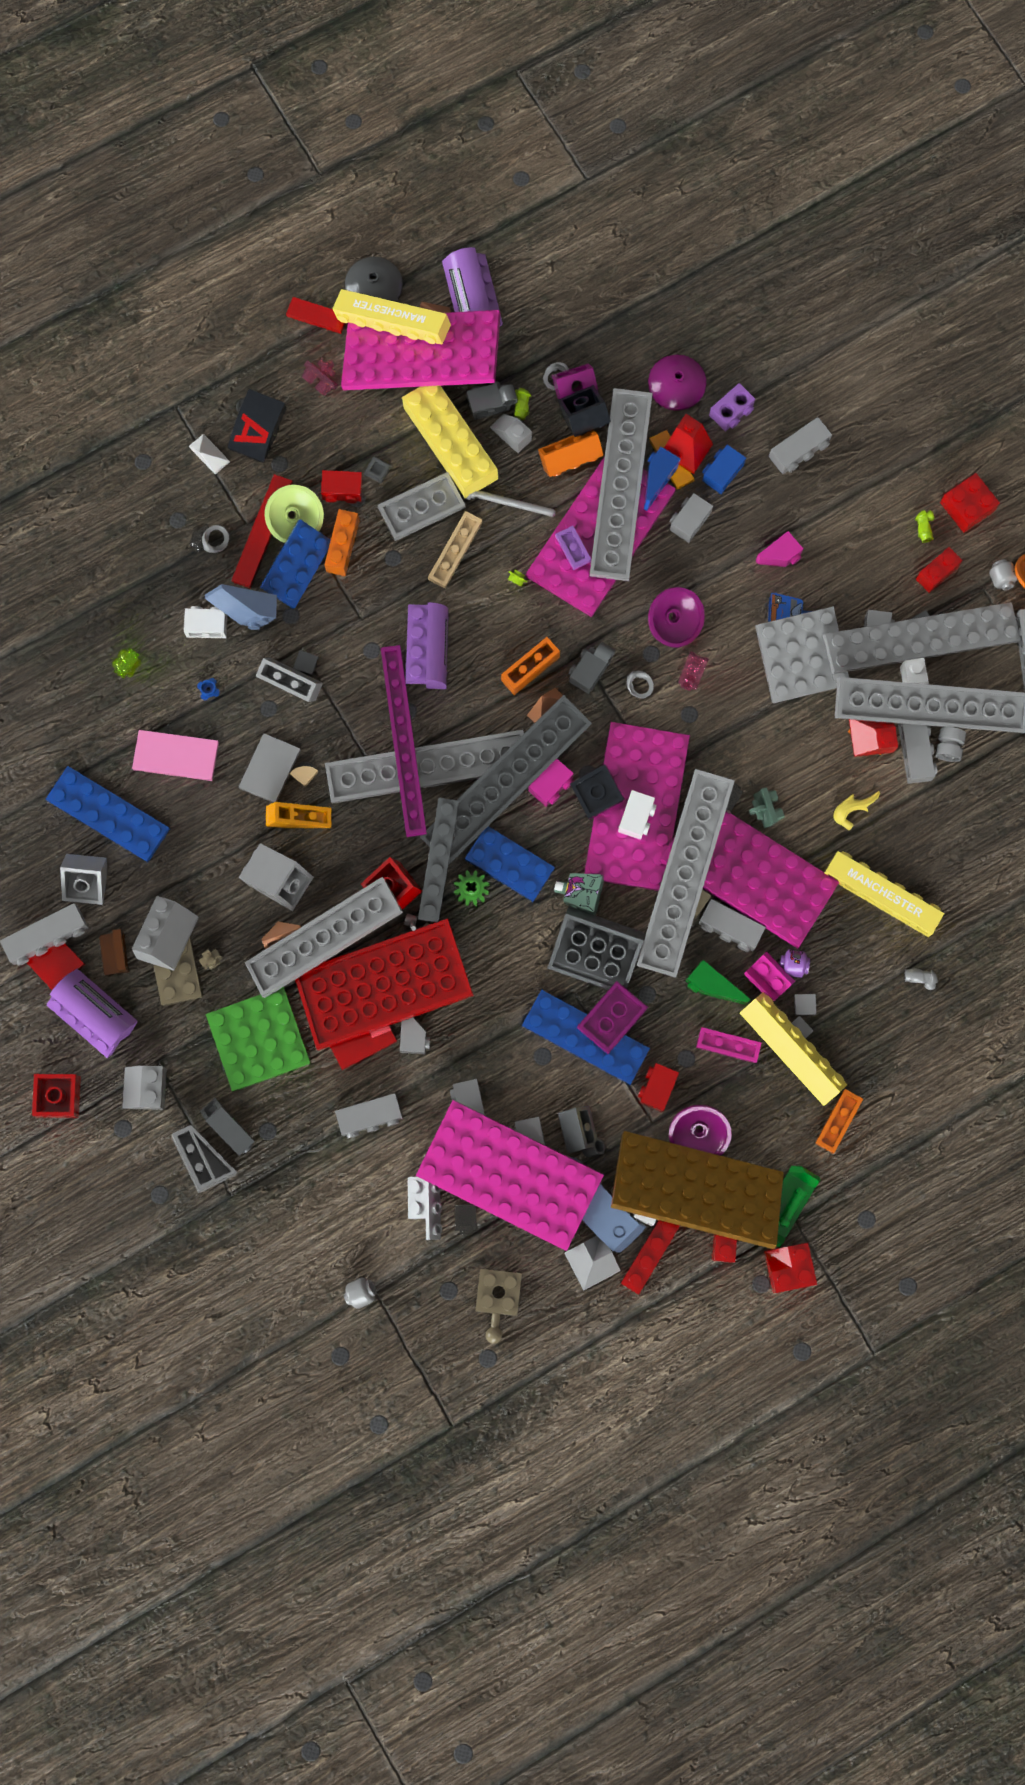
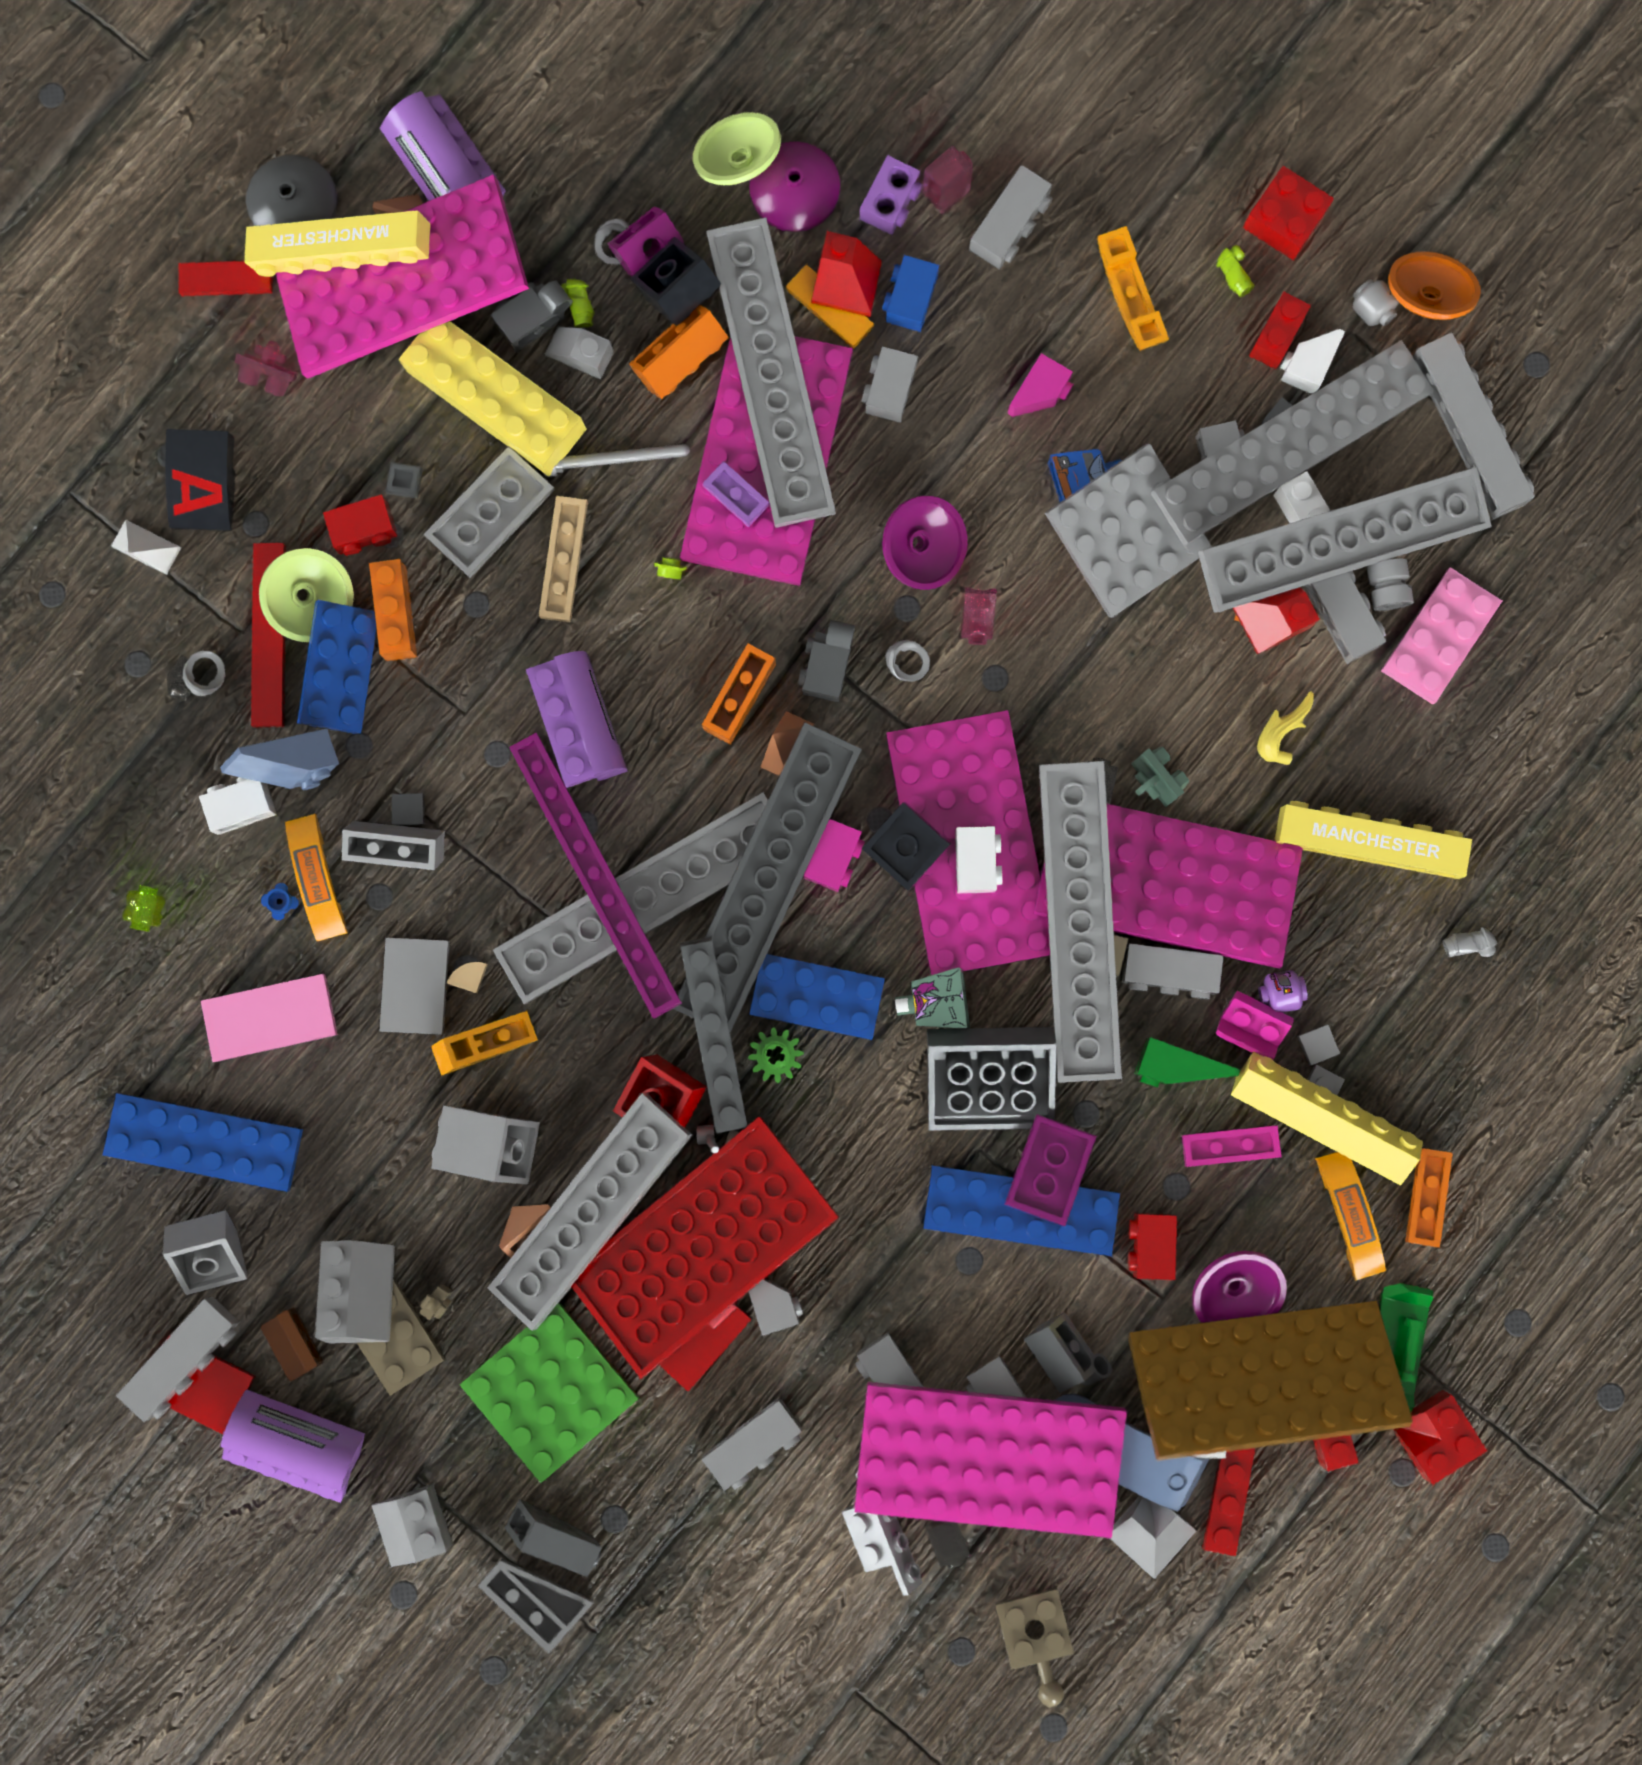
camera: 15 degrees left, 5 degrees up
(56, 1096) = (288, 1589): red brick -> none
(234, 683) = (314, 878): none -> light orange slope
(360, 1293) = (837, 1706): light grey head -> none
(650, 347) = (737, 148): none -> yellowish green dish
(661, 469) = (820, 333): blue slope -> none
(770, 409) = (948, 179): none -> clear pink brick
(788, 1115) = (1353, 1215): none -> light orange slope
(857, 513) = (1130, 290): none -> light orange slope
(951, 594) = (1310, 361): none -> white slope
(971, 787) = (1441, 635): none -> bright pink plate

